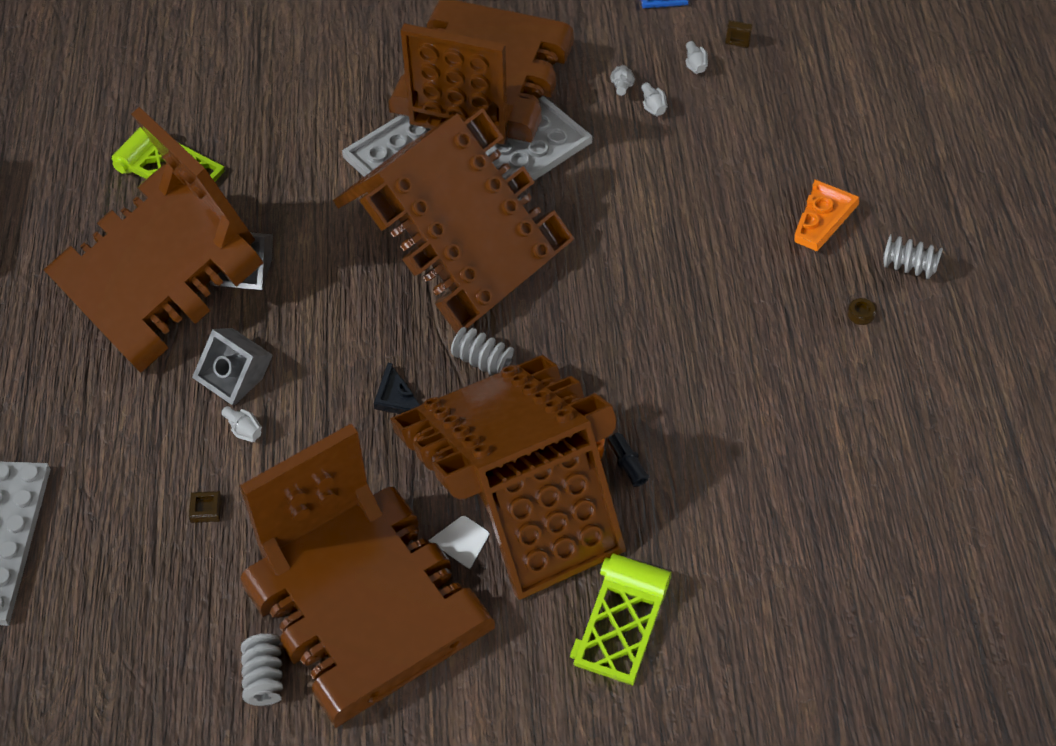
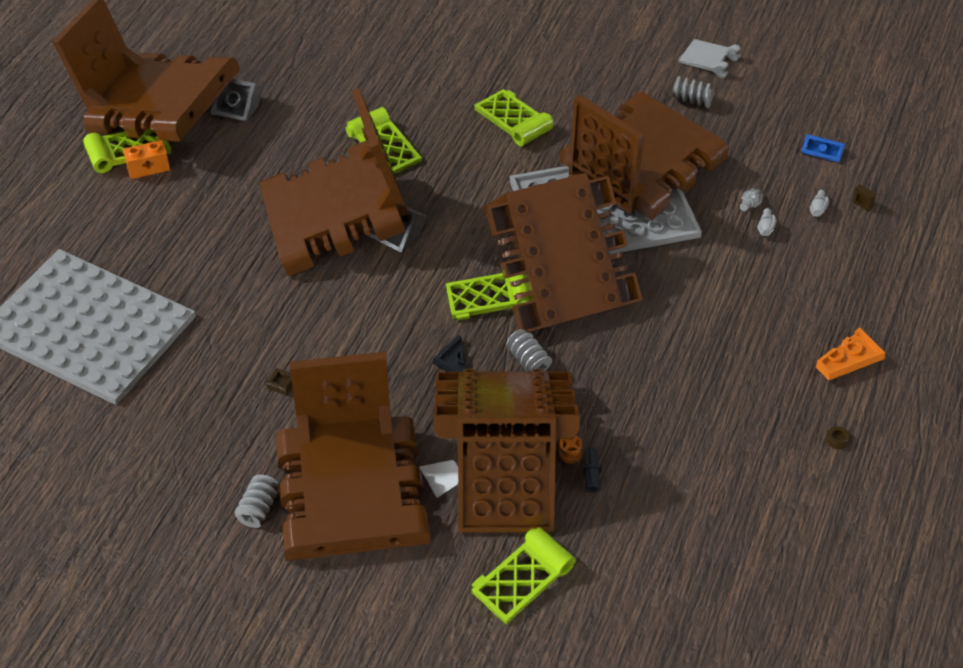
camera: 25 degrees right, 5 degrees down
(231, 364) = (350, 293): flat silver slope -> none
(243, 424) = (336, 336): light grey piece -> none
(329, 87) = (526, 128): none -> lime piece
(385, 285) = (493, 304): none -> lime piece
(911, 256) = (899, 413): light grey piece -> none

